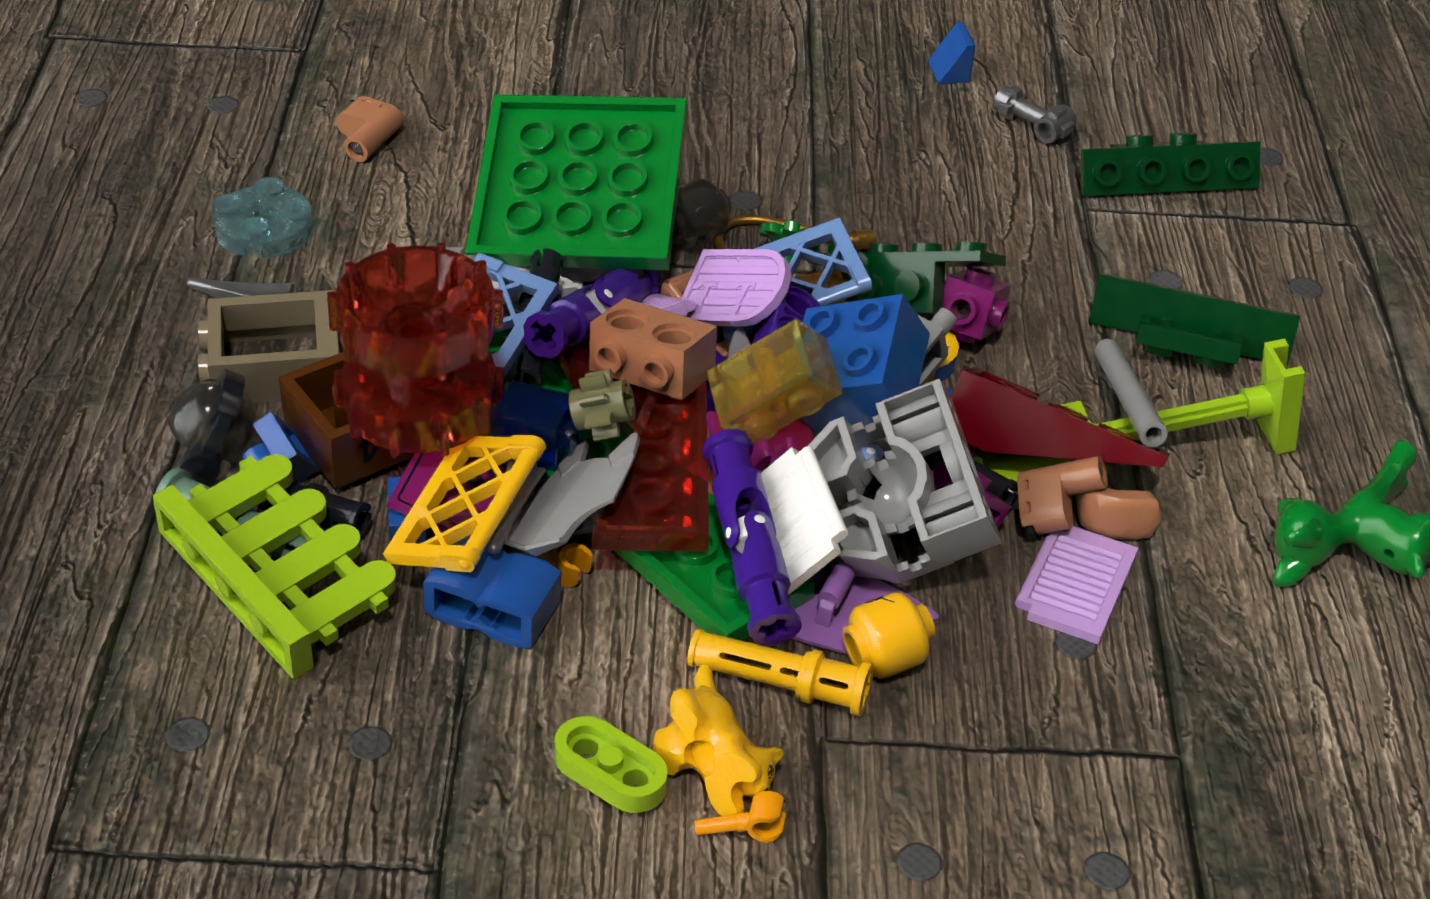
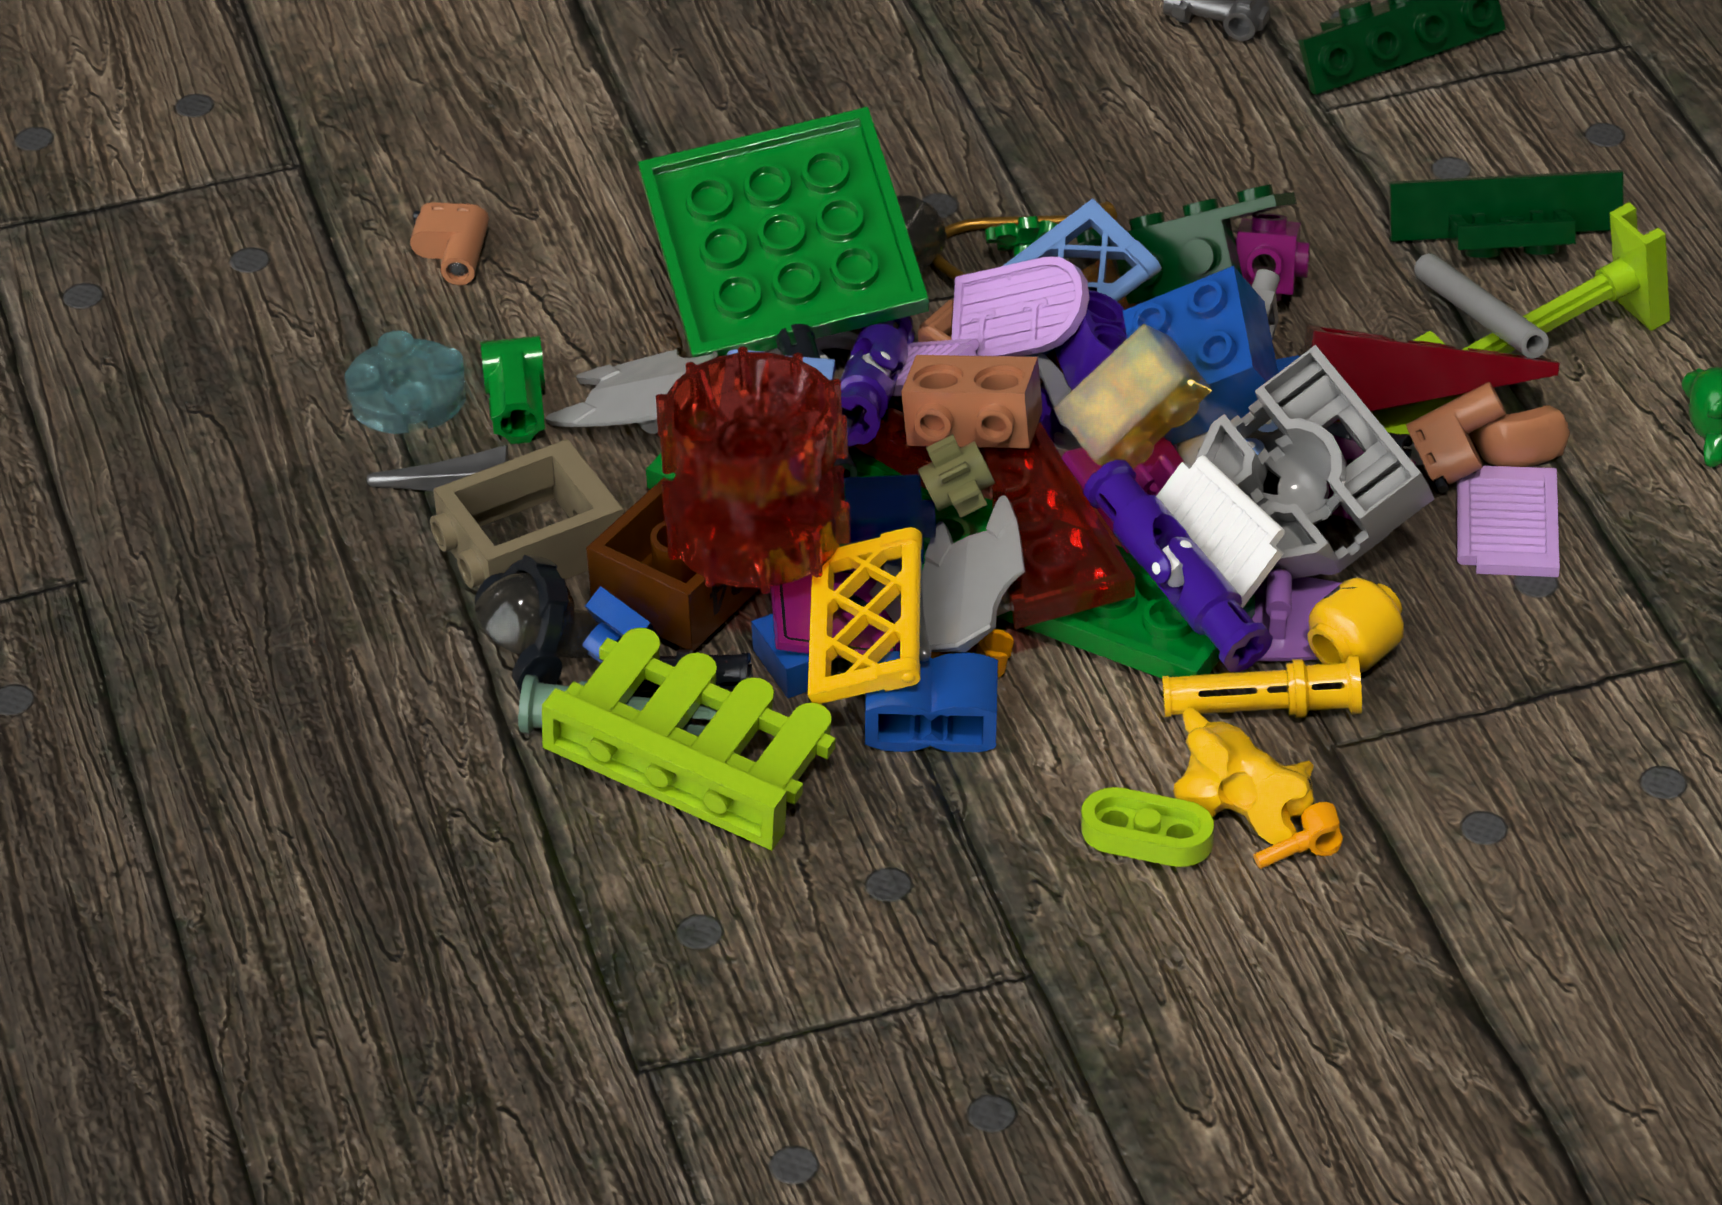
camera: 15 degrees left, 0 degrees up
(337, 237) = (514, 381): none -> green piece

